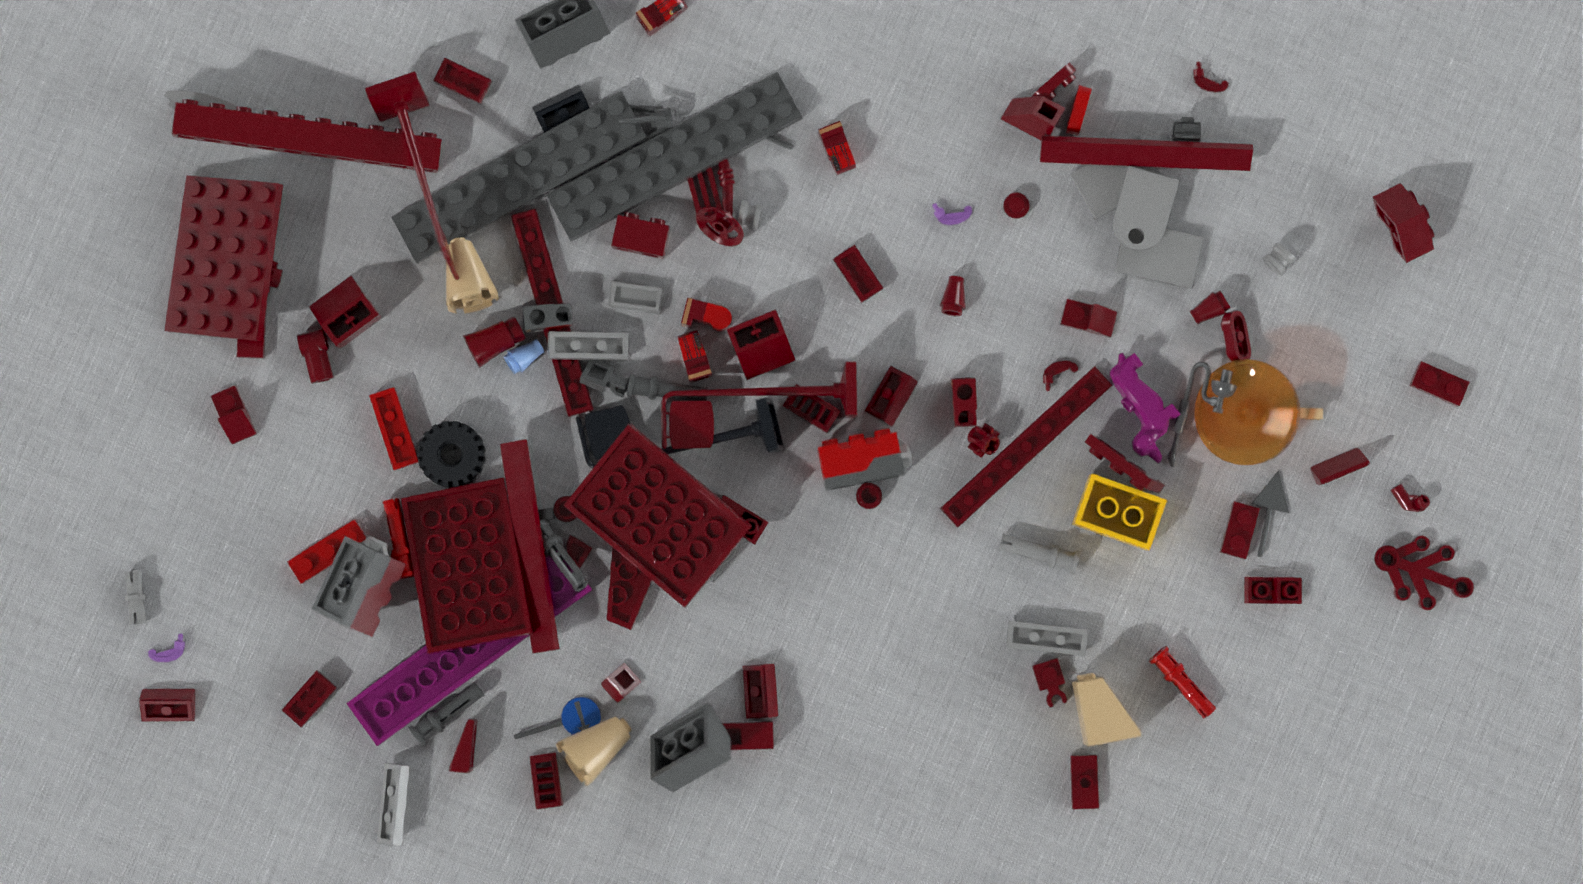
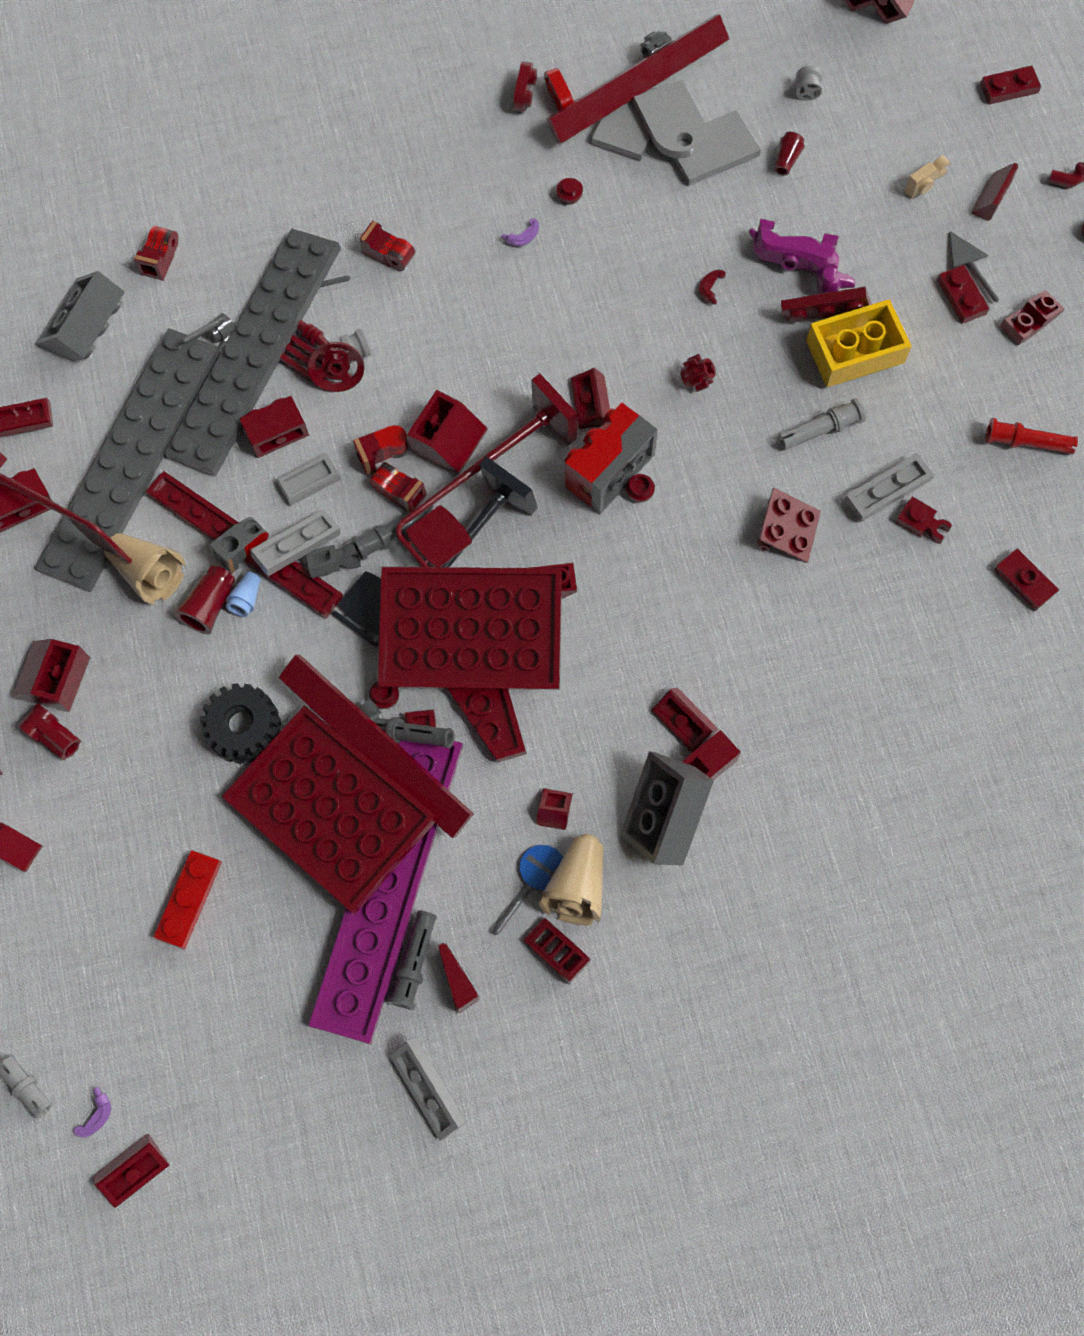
camera: 35 degrees left, 15 degrees down
(309, 698) = (269, 1051): dark red plate -> none
(358, 584) = (237, 899): dark grey piece -> none
(394, 428) = (170, 741): red plate -> none
(398, 536) = (256, 842): red pin -> none
(560, 108) = (126, 381): black slope -> none
(825, 427) = (544, 463): dark red slope -> none
(858, 274) = (484, 326): dark red plate -> none
(950, 610) = (788, 526): none -> hinge
(954, 297) = (579, 289): dark red cone -> none
(964, 401) = (655, 355): dark red leg -> none
(1026, 446) = (735, 360): dark red tile -> none
(1034, 115) = (528, 114): dark red slope -> none
(1088, 318) = (699, 229): dark red slope -> none
(1100, 712) = (989, 503): tan slope -> none
(1205, 83) = (639, 13): dark red piece -> none
(1221, 388) = (852, 191): dark grey piece -> none
(1236, 336) = (819, 153): dark red plate -> none
(1255, 420) = (889, 196): clear orange dish -> none

